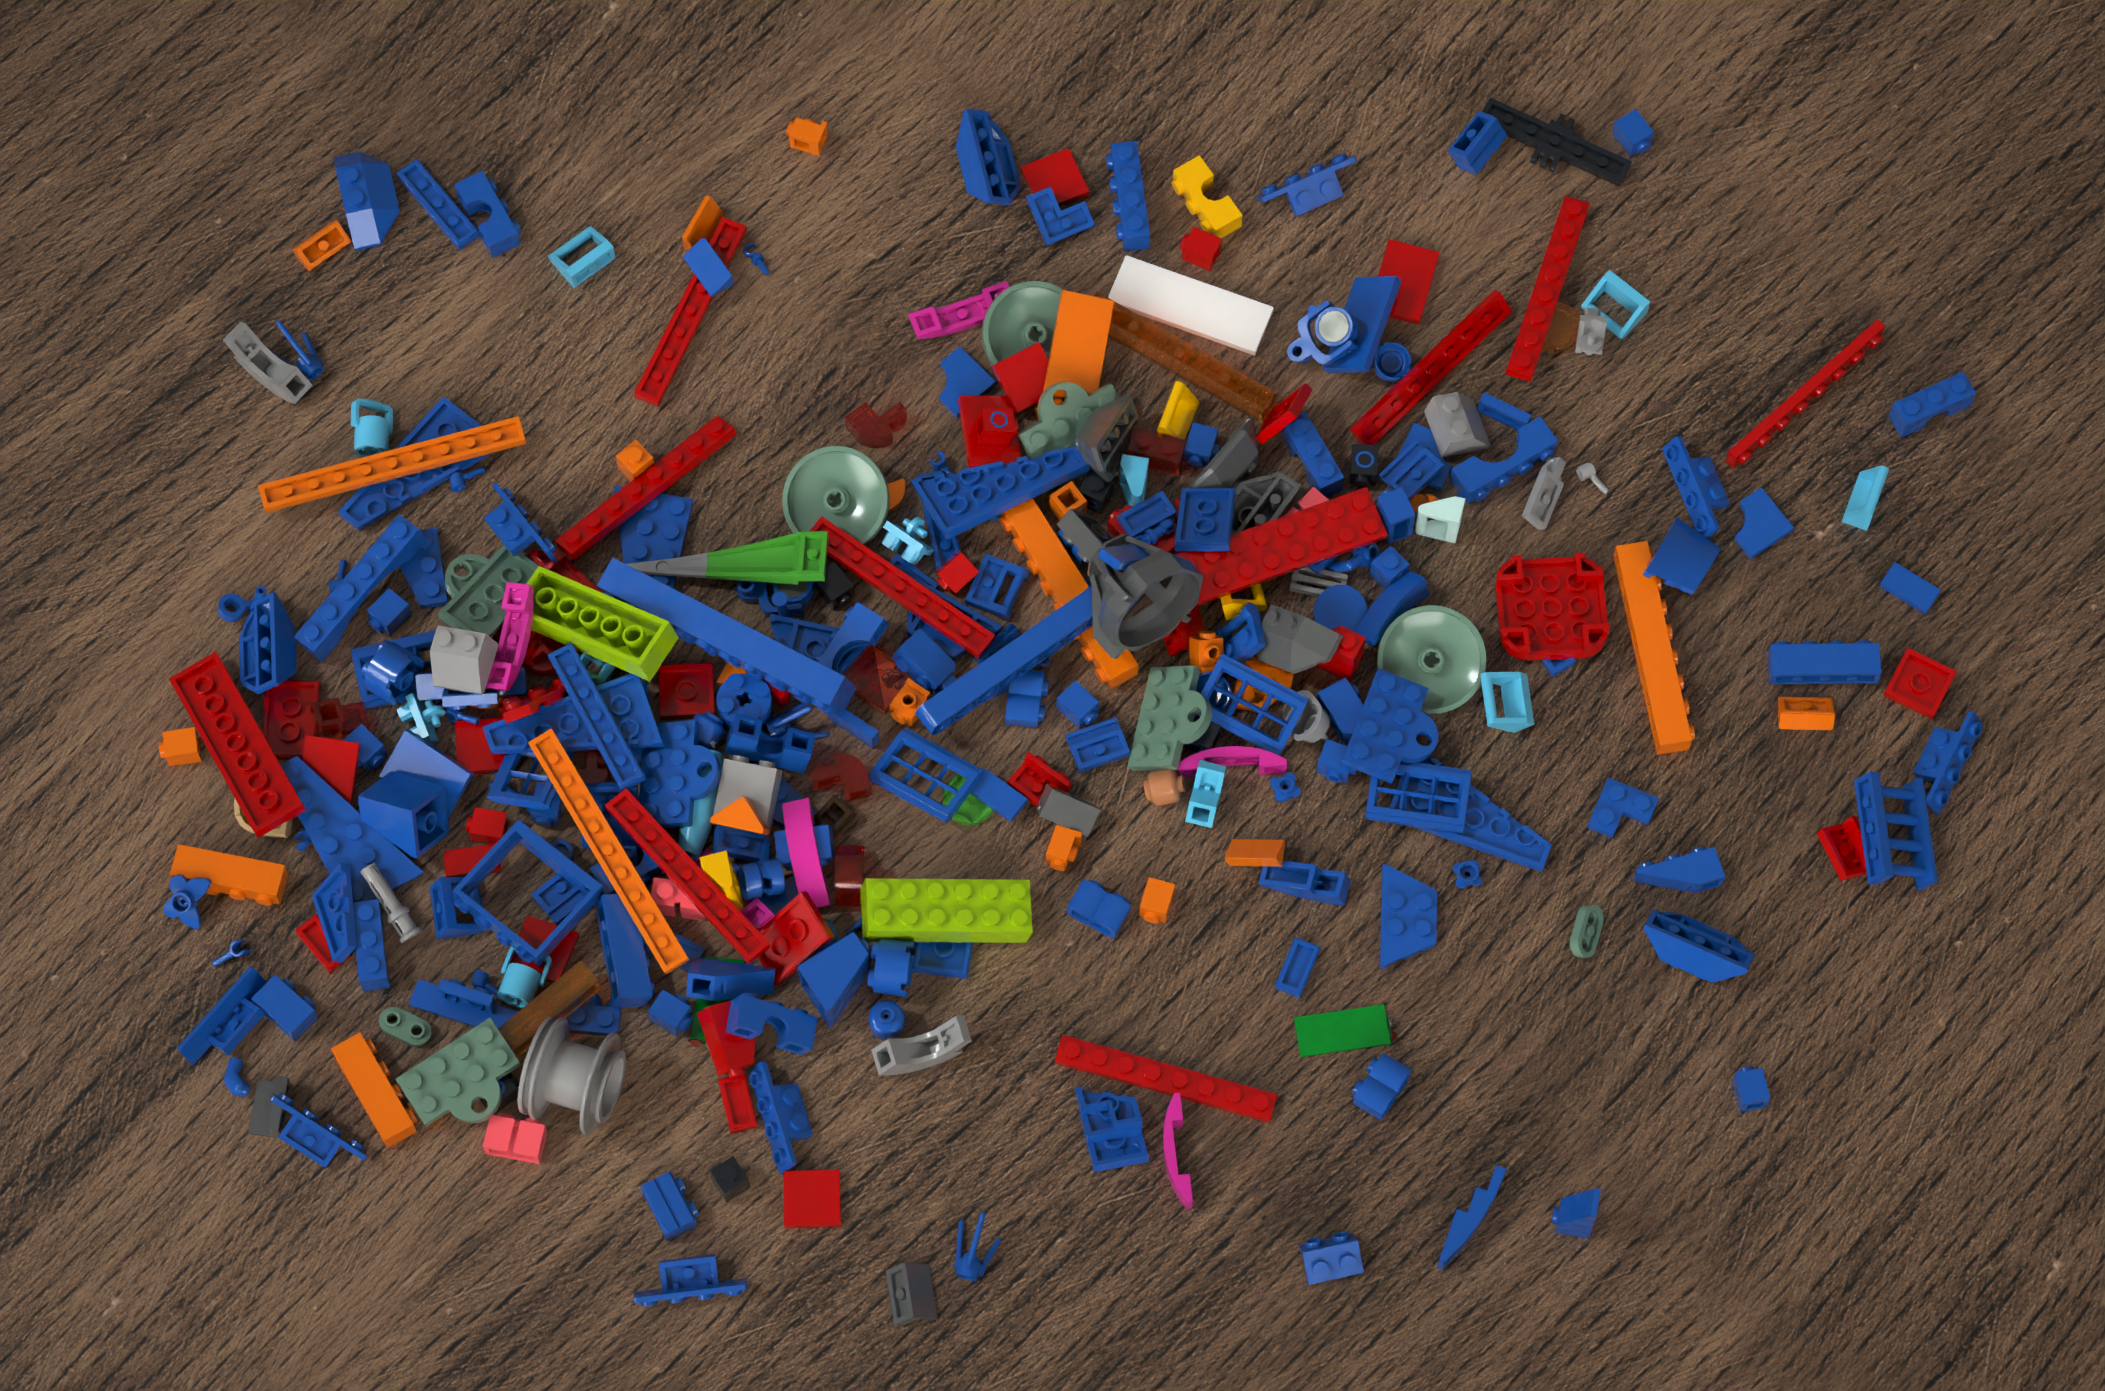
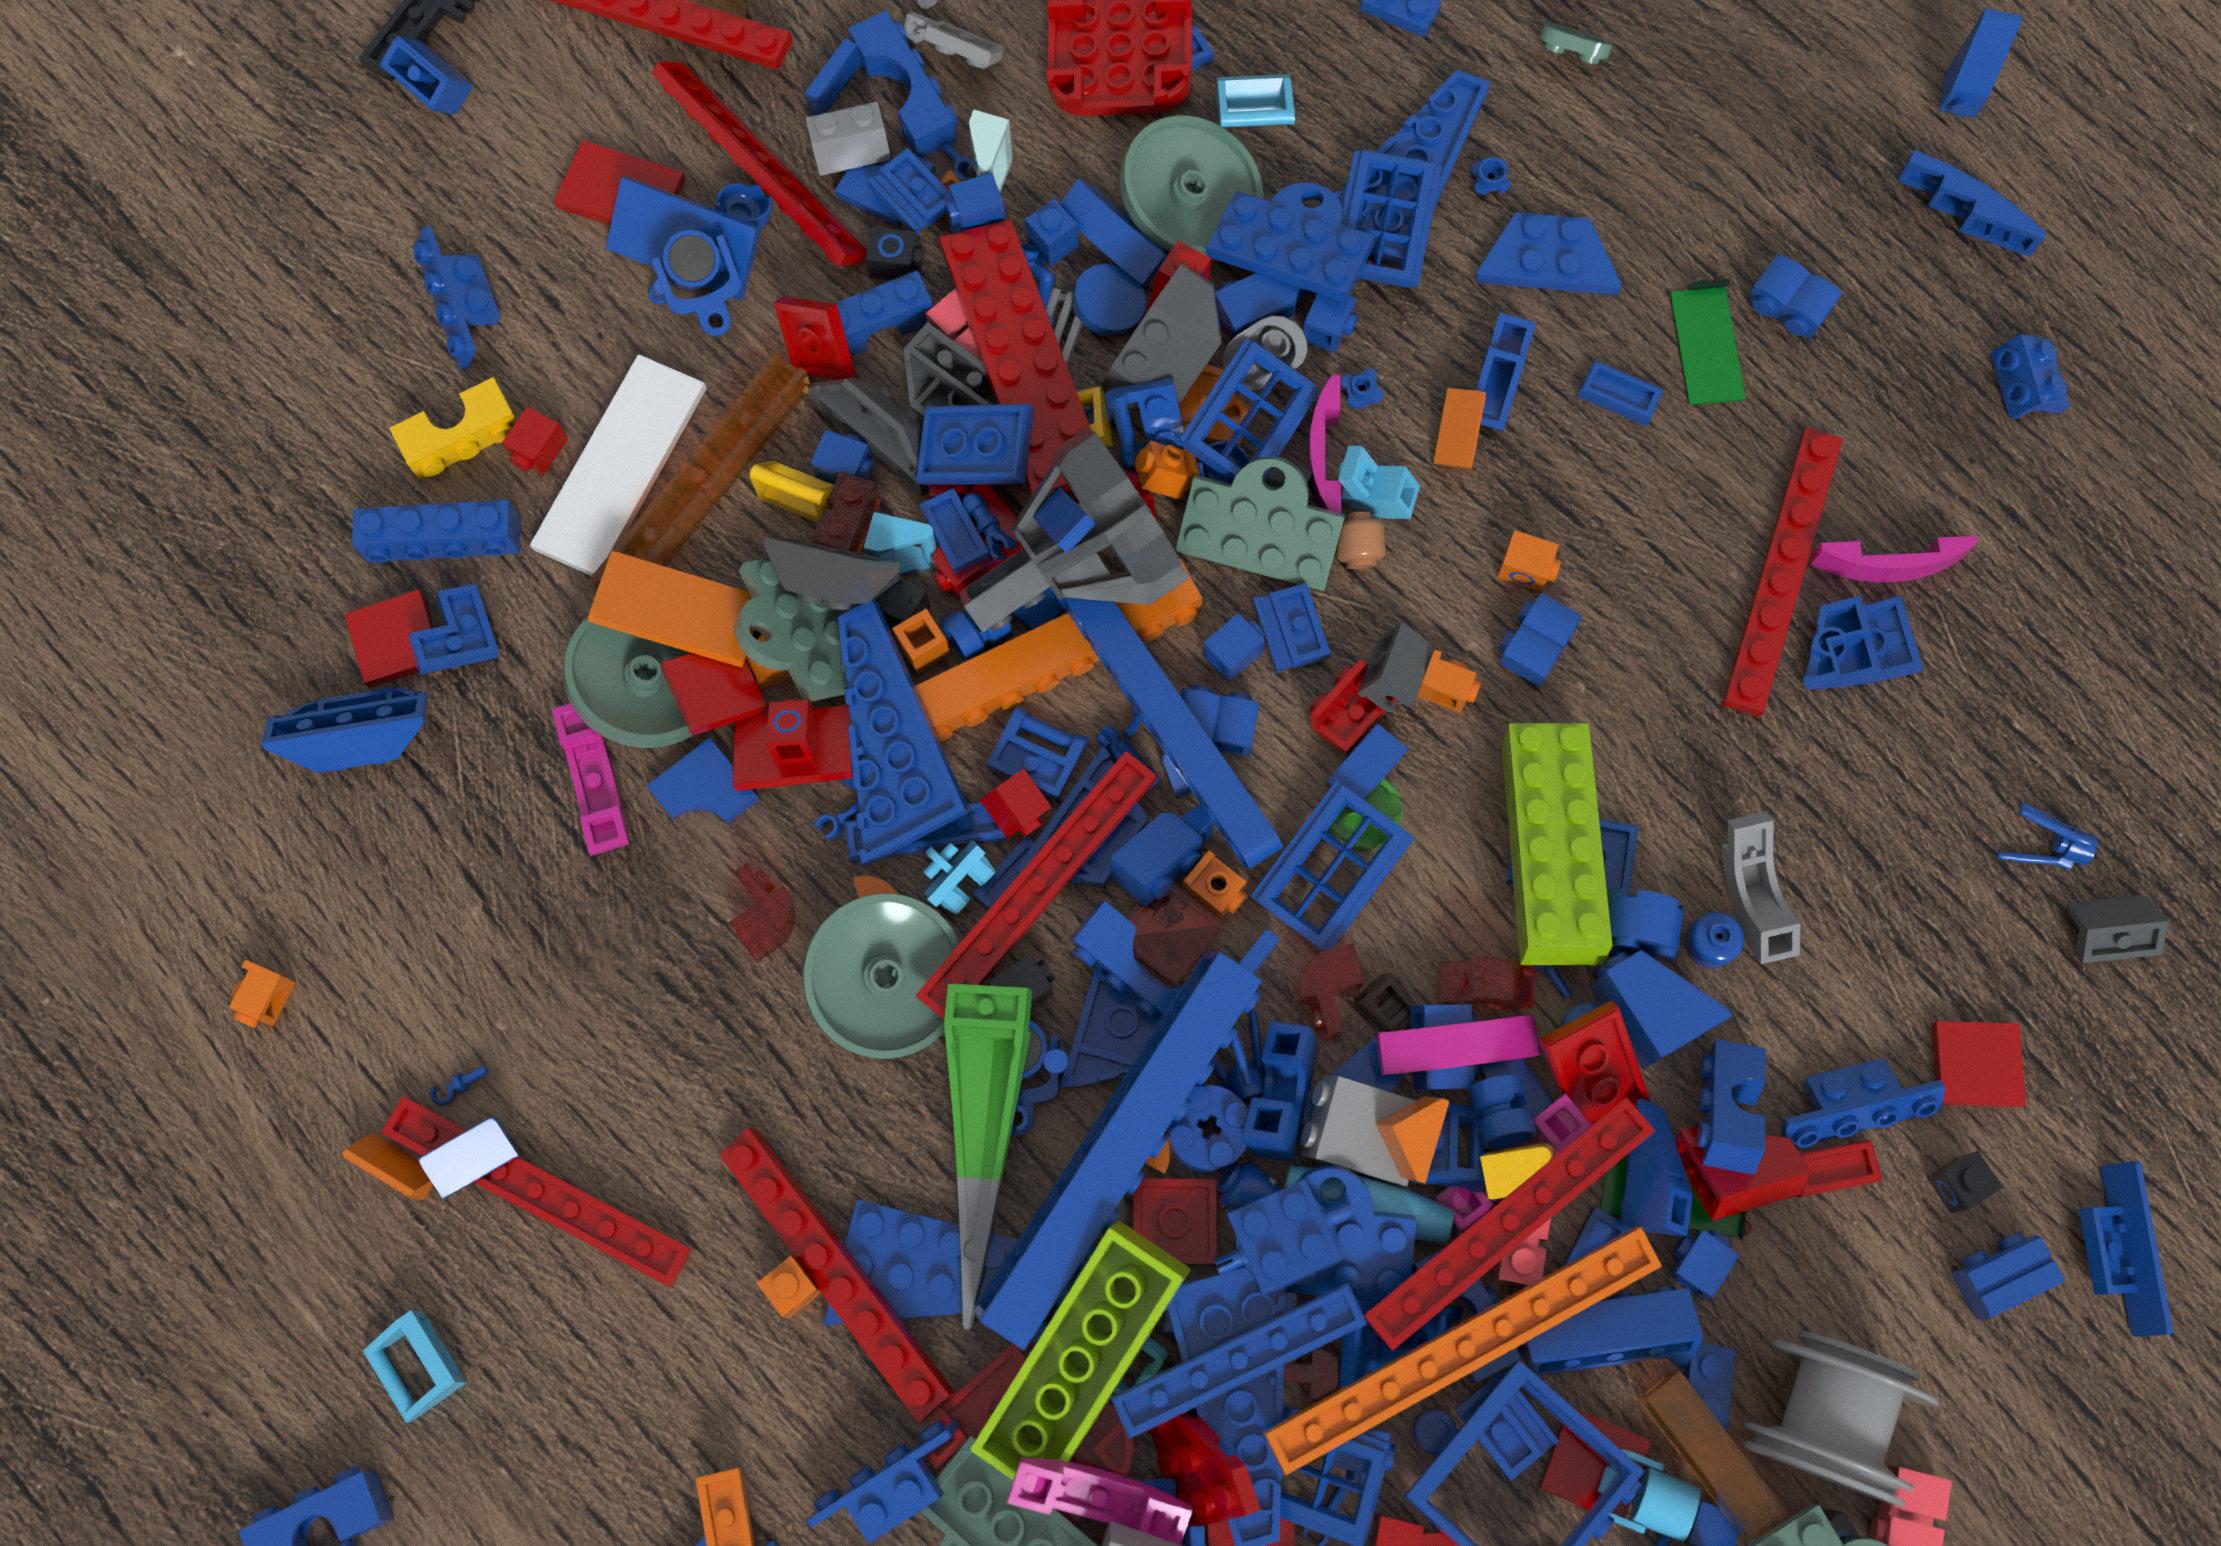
camera: 85 degrees left, 5 degrees up
(672, 738) = (1284, 1237): none -> blue plate

